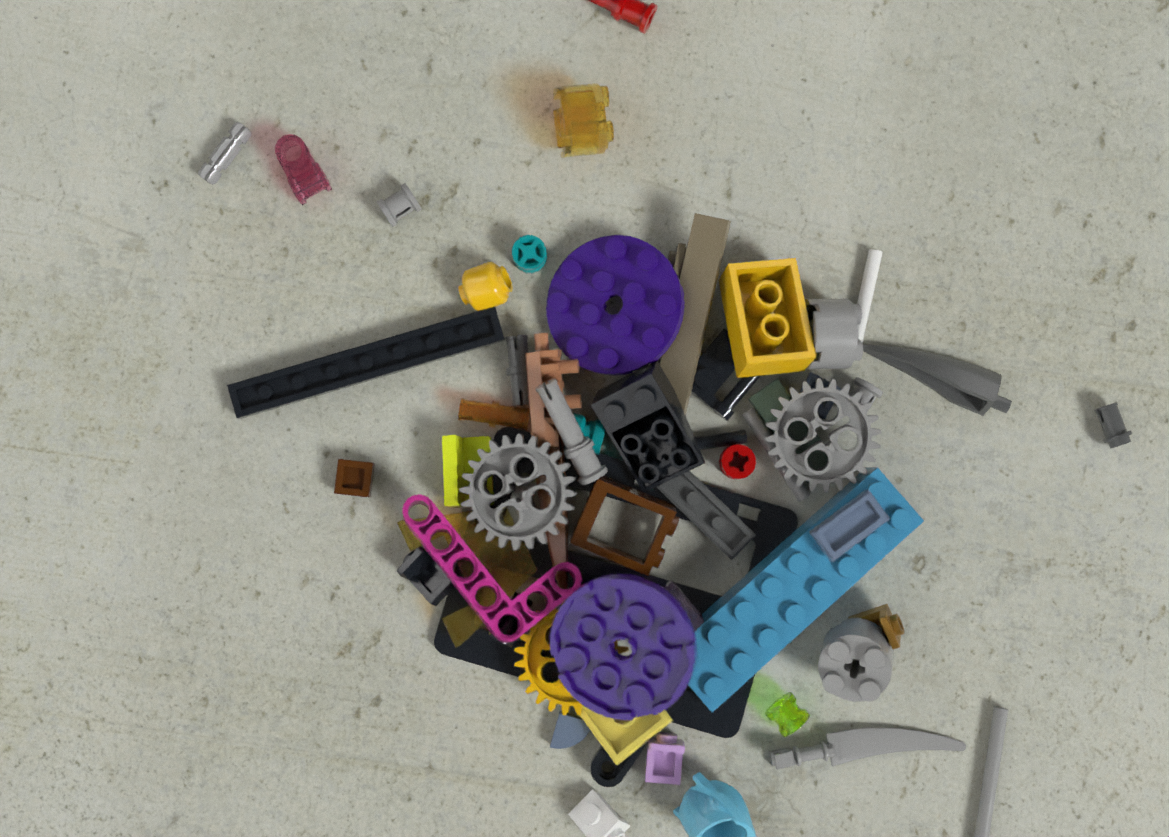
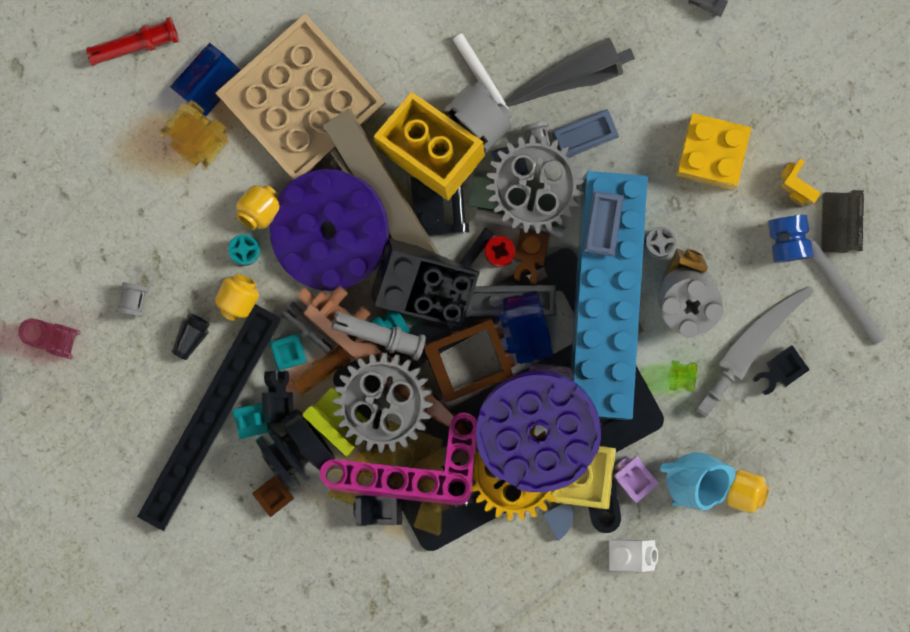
camera: 40 degrees left, 0 degrees up
(397, 399) = (250, 421): none -> teal tile
(407, 458) = (294, 449): none -> black wheel
(416, 280) = (190, 335): none -> black cone
(433, 406) = (276, 402): none -> black plate
(482, 373) = (288, 352): none -> teal tile
(574, 229) = (257, 207): none -> yellow head
(637, 86) = (205, 77): none -> clear blue panel
(699, 547) = (527, 327): none -> clear blue brick
(700, 164) = (296, 90): none -> tan plate
(762, 487) = (531, 251): none -> reddish brown plate
(878, 791) = (784, 368): none -> black plate
(883, 589) = (664, 236): none -> light grey wheel
(905, 435) = (586, 133): none -> sand blue tile
(984, 701) = (790, 249): none -> blue wheel
(996, 554) = (713, 151): none -> yellow brick
(1036, 654) = (799, 191): none -> yellow bracket
(1047, 719) = (842, 222): none -> clear smoke panel

